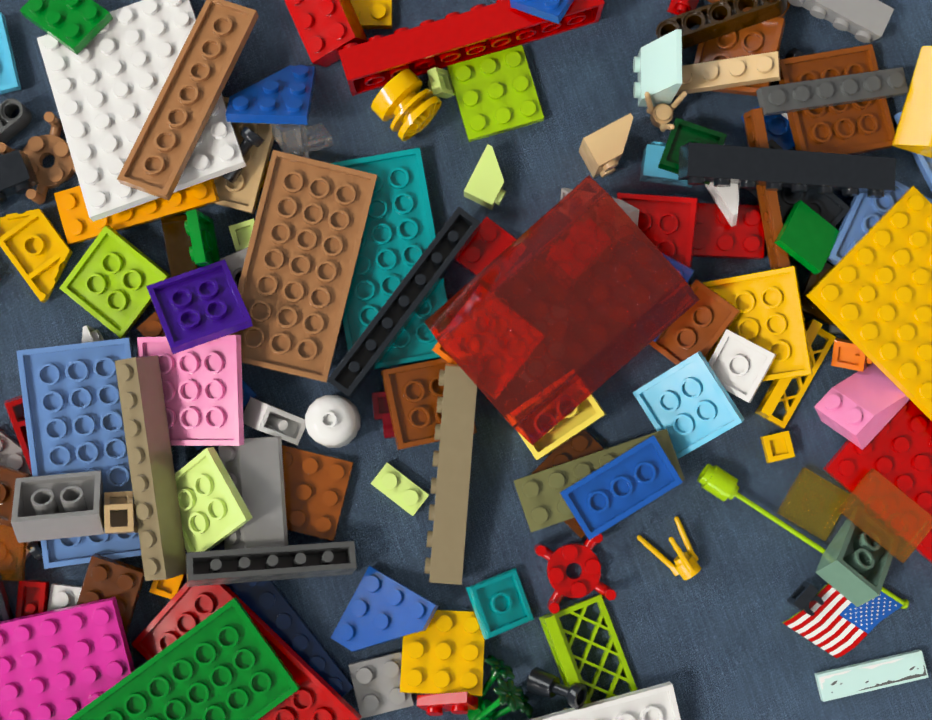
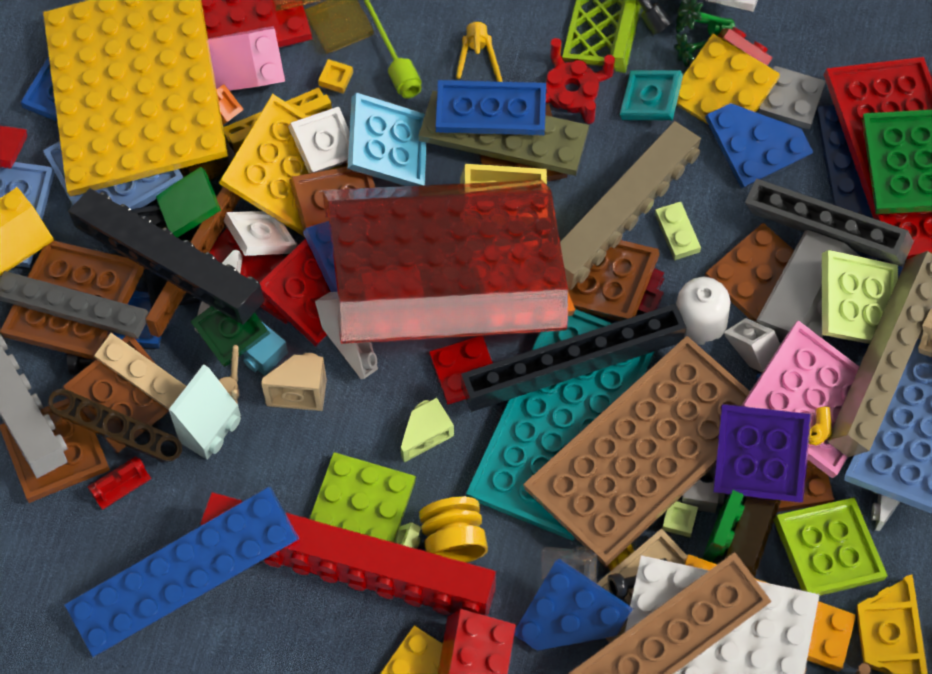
camera: 145 degrees left, 20 degrees down
(166, 363) = (822, 428): none -> yellow arm
(731, 252) = (259, 233): none -> white plate

